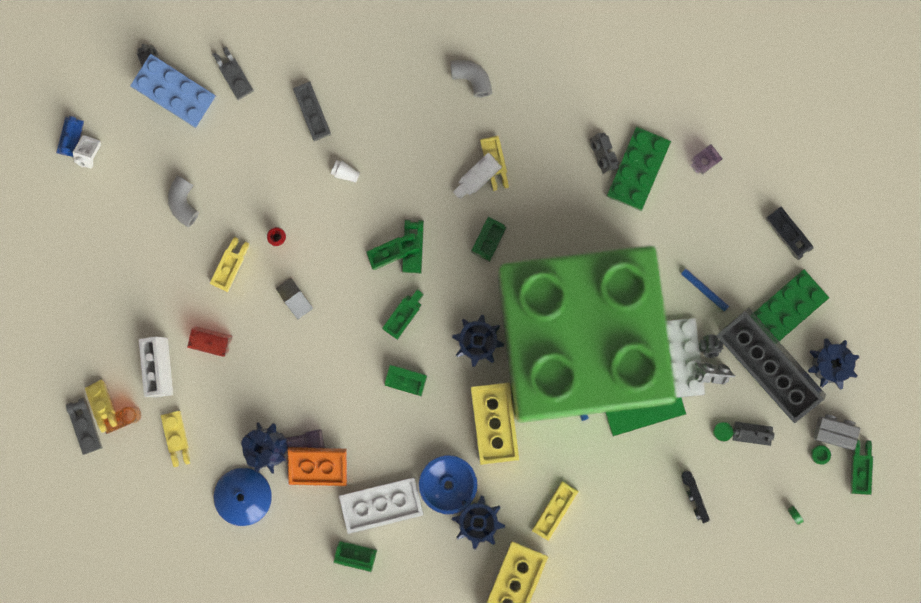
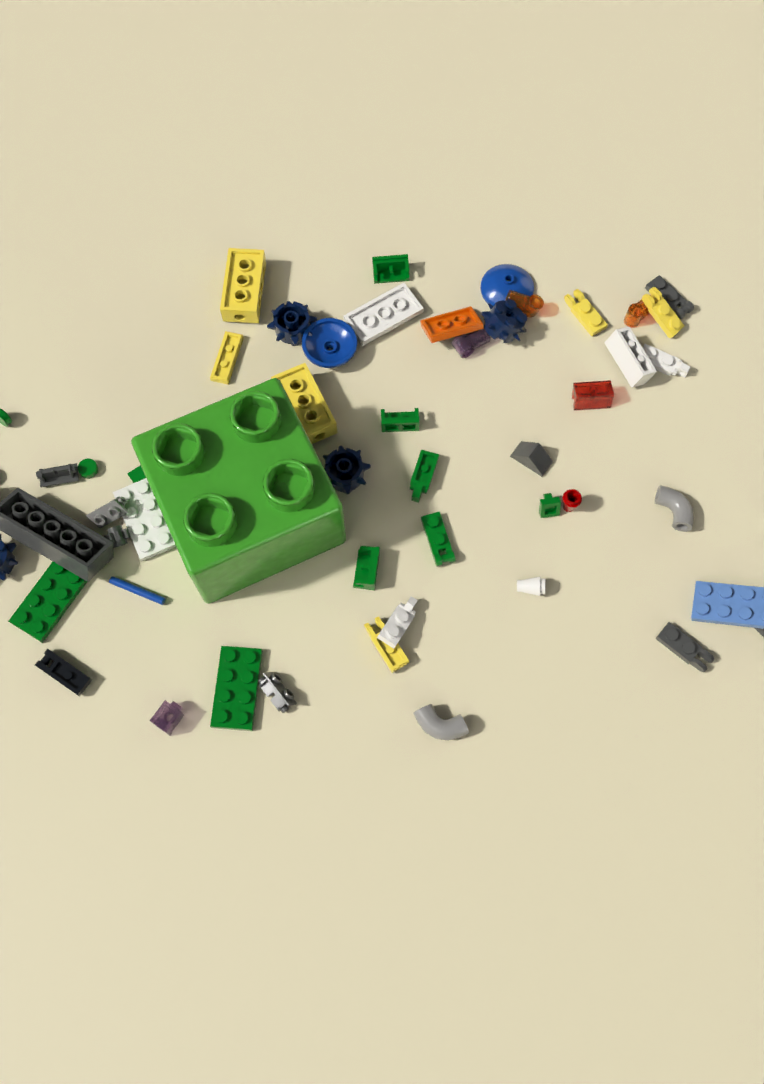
camera: 160 degrees right, 15 degrees down
(123, 356) = (665, 362): none -> white hinge
(229, 266) = (604, 465): light yellow hinge -> none
(236, 465) = (527, 304): none -> clear orange piece
(298, 241) = (549, 506): none -> green tile
(312, 111) = (589, 634): dark grey plate -> none
(391, 251) = (456, 523): green hinge -> none
(694, 495) = (99, 404): black hinge -> none

